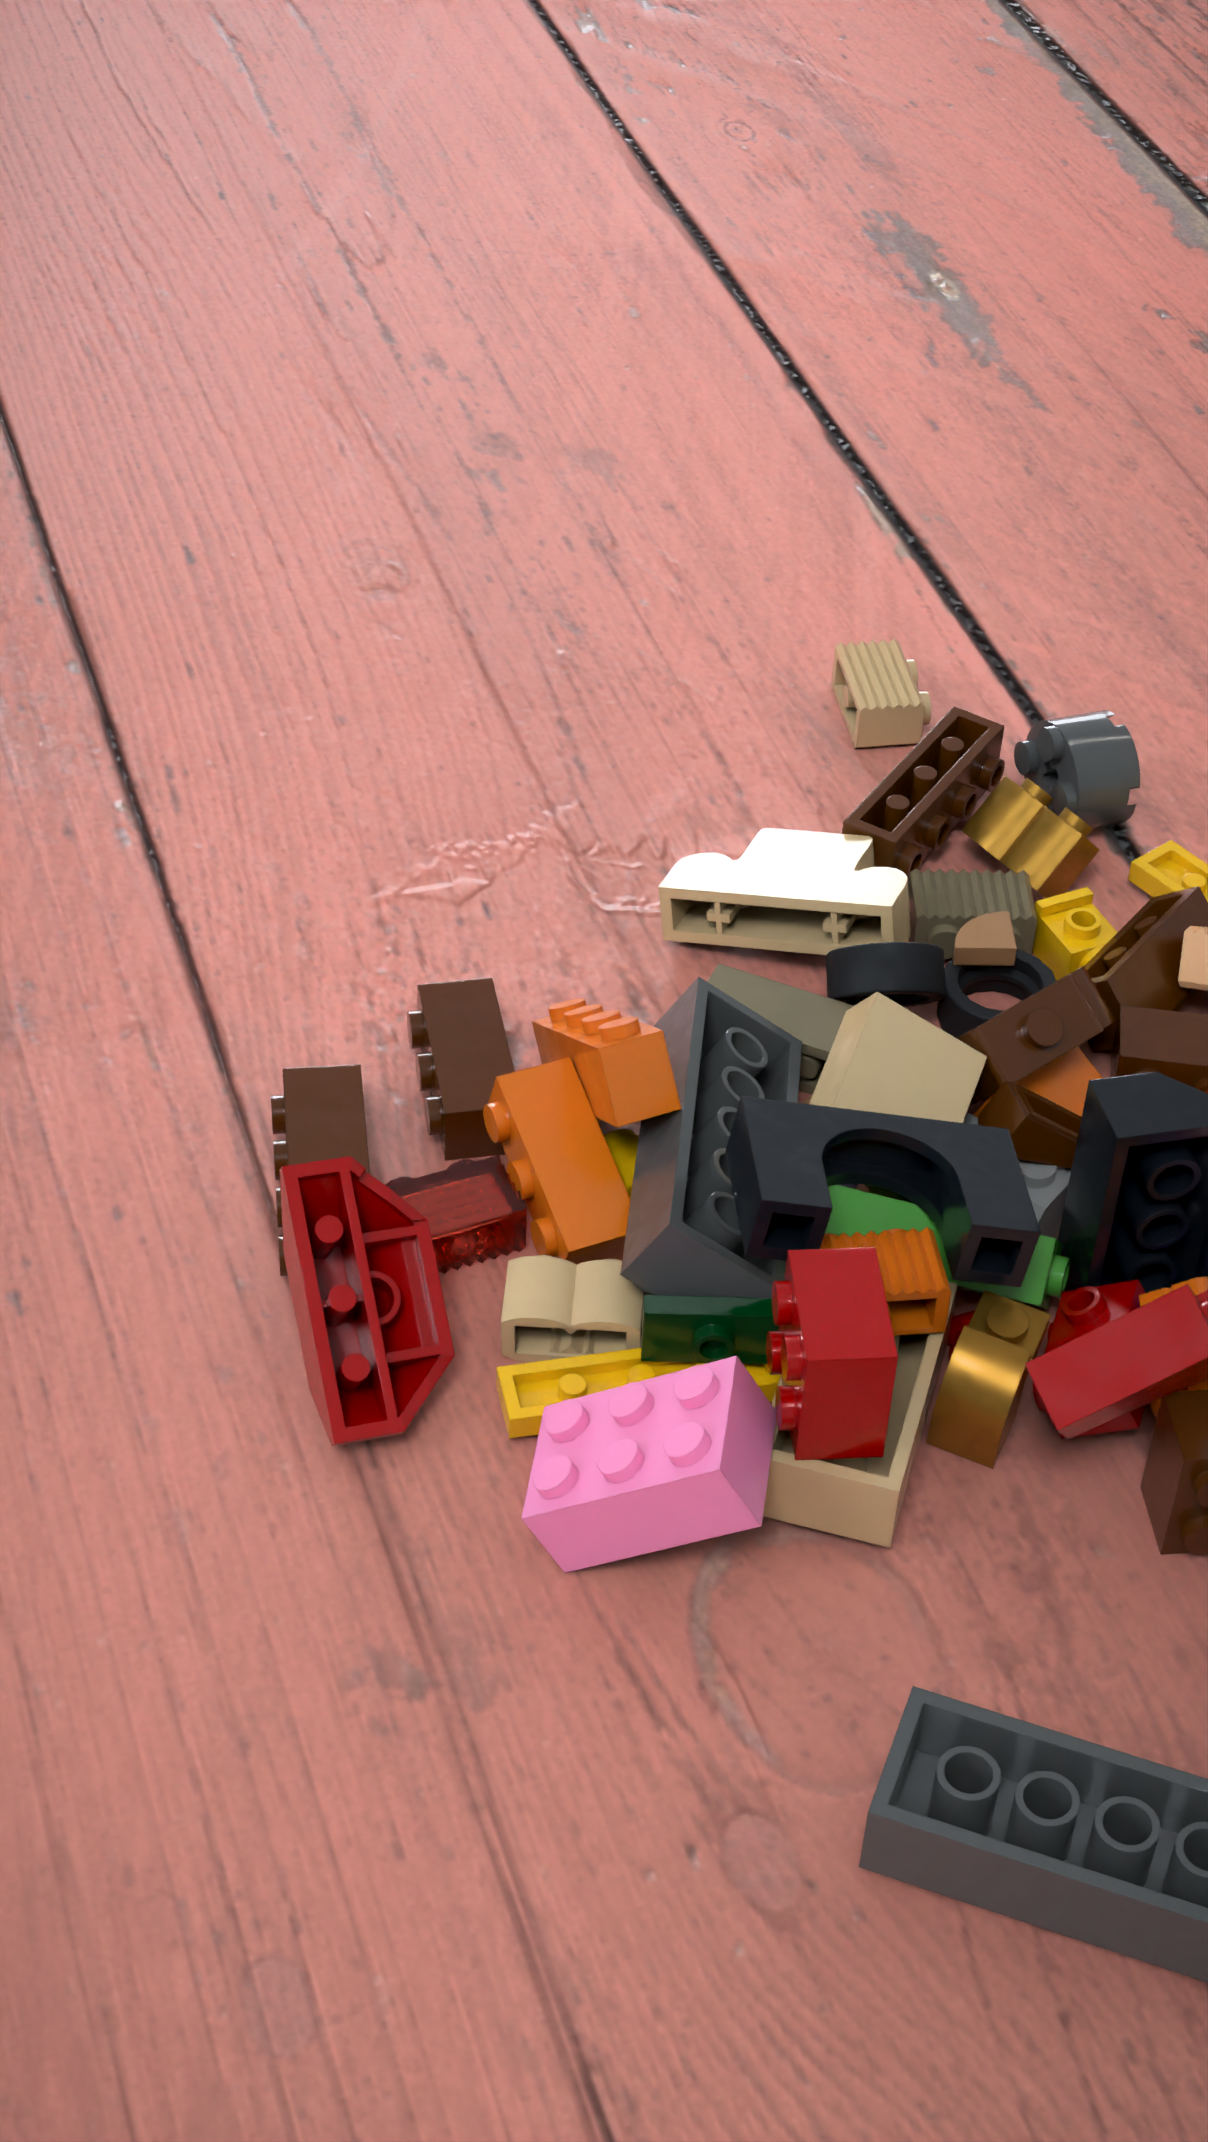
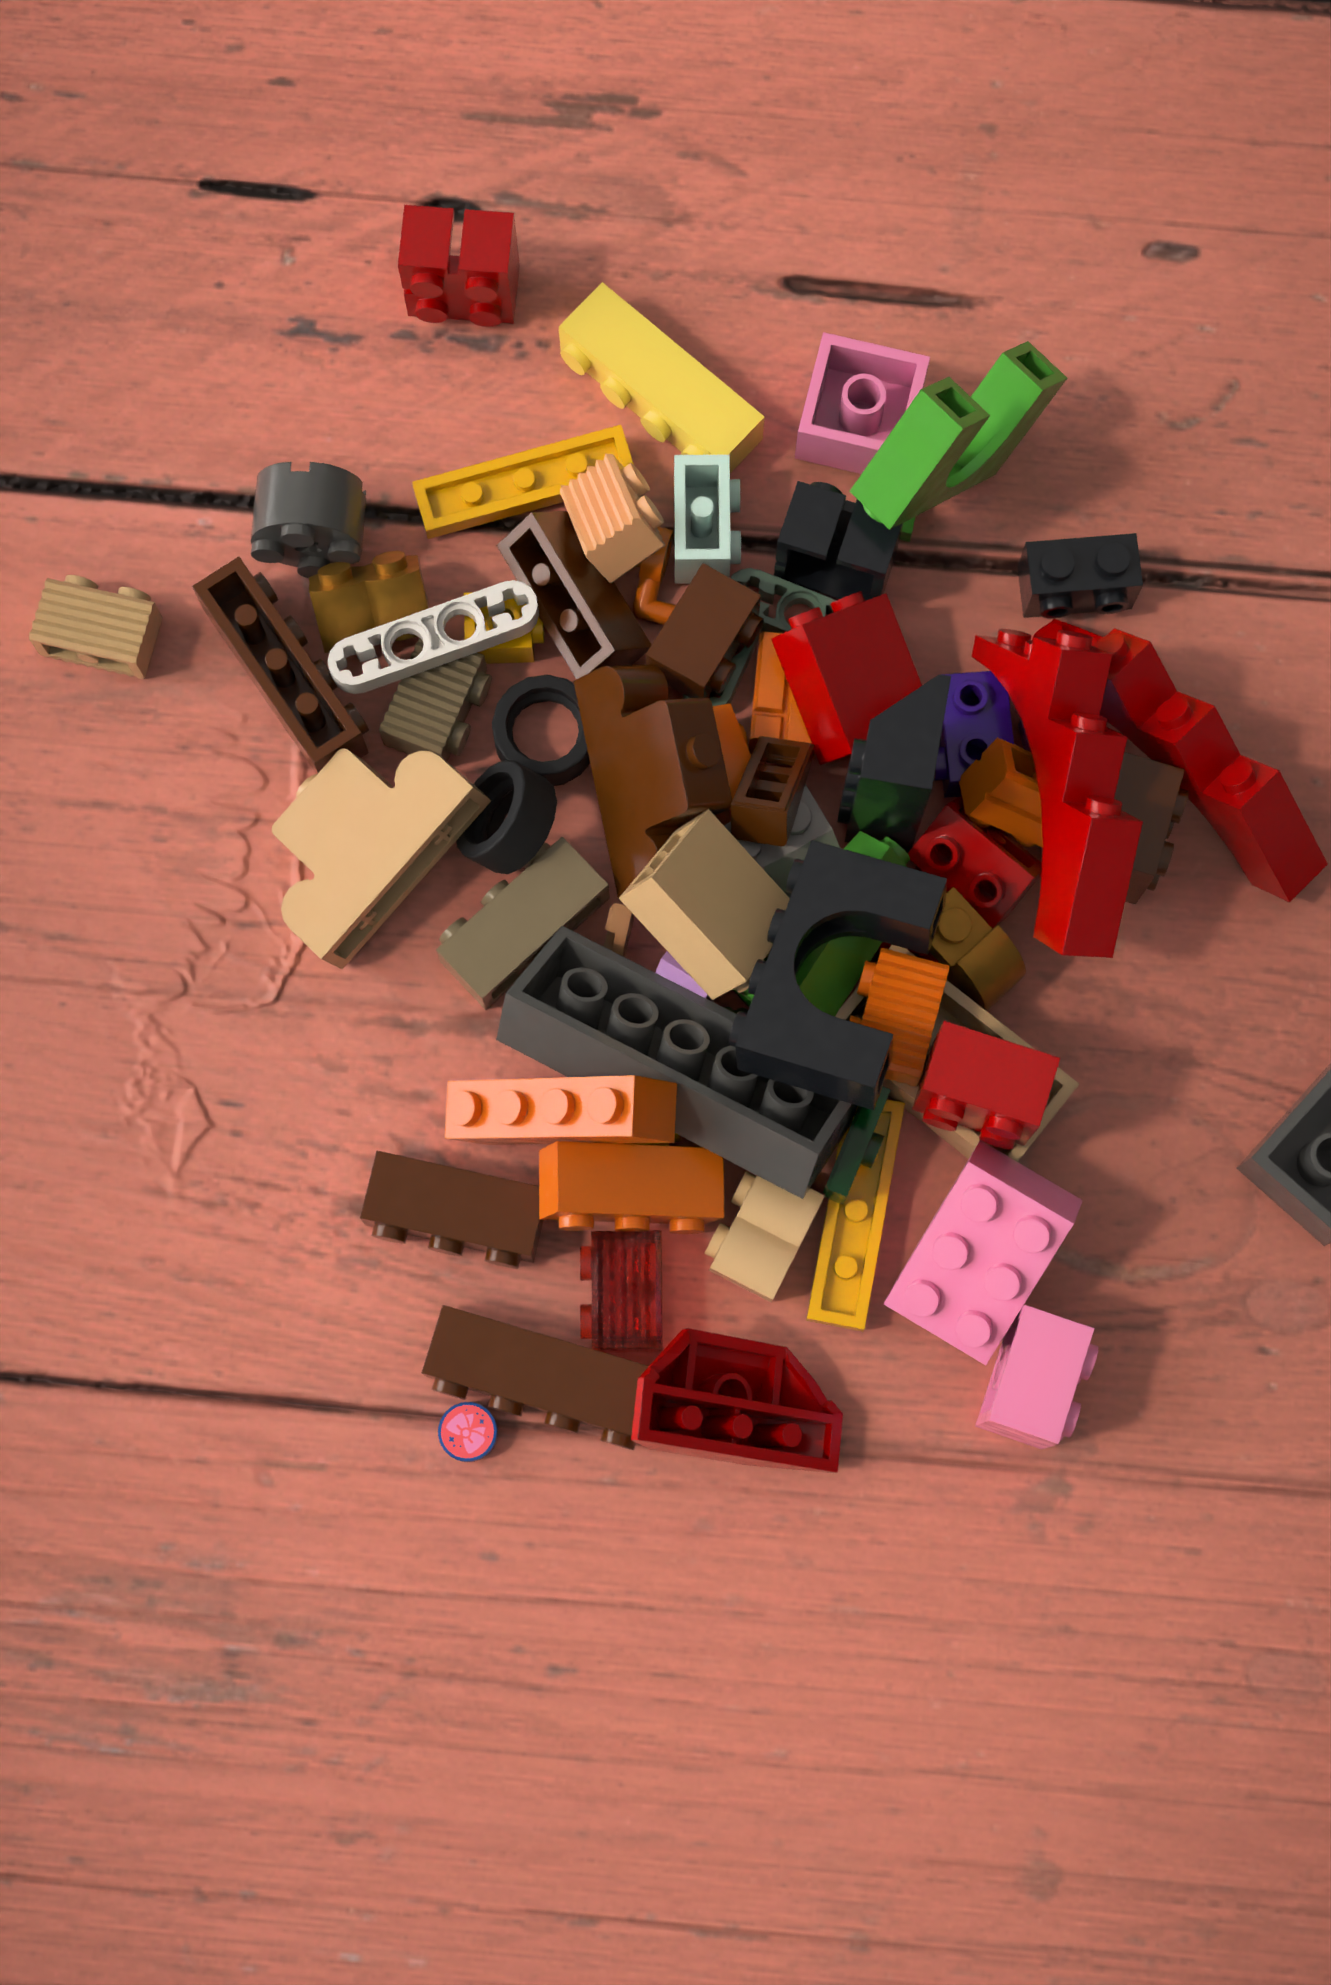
camera: 65 degrees left, 35 degrees up
(240, 1151) = (468, 1432): none -> tile
(529, 1569) = (1037, 1379): none -> bright pink brick
(986, 941) = (501, 713): medium nougat tile -> none
(1080, 906) = (437, 646): none -> white beam

